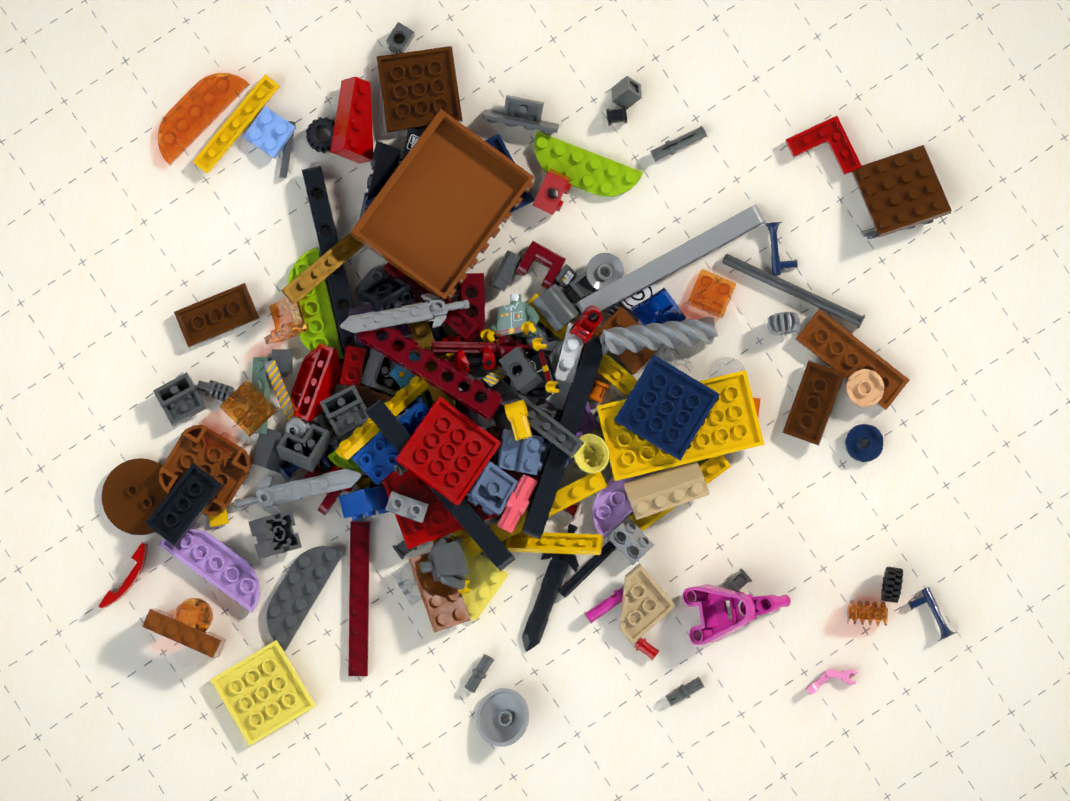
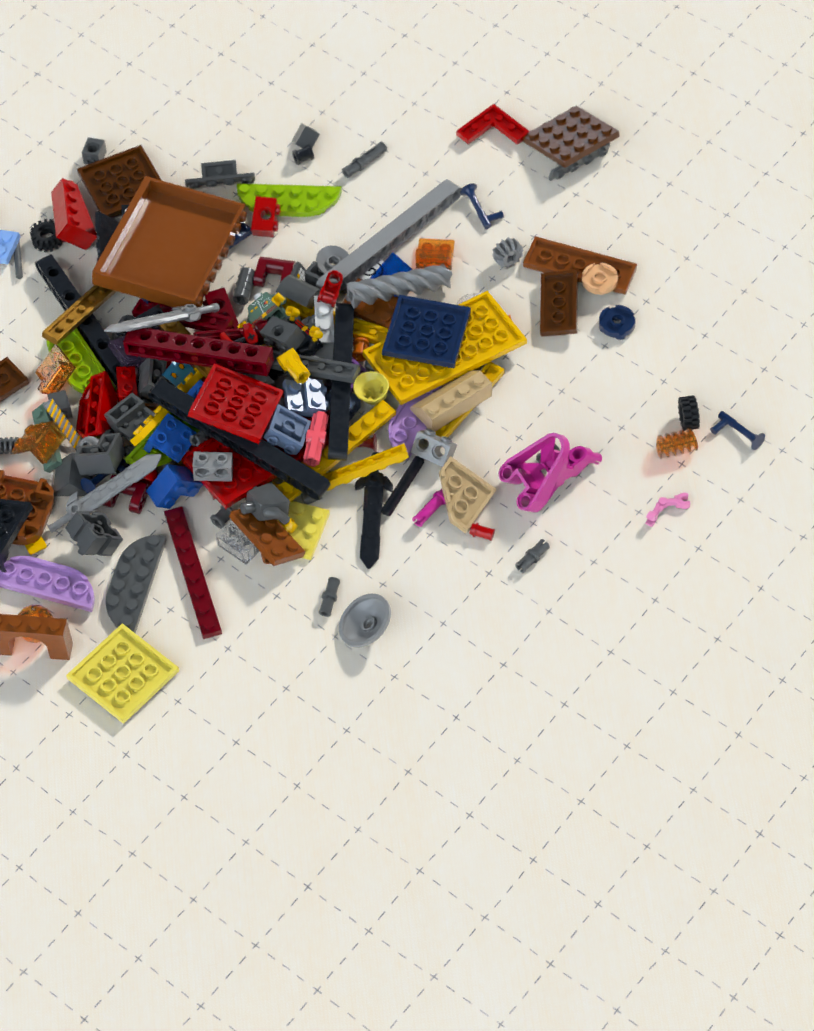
camera: 15 degrees left, 30 degrees down
(793, 290) = (501, 231): dark grey axle -> none

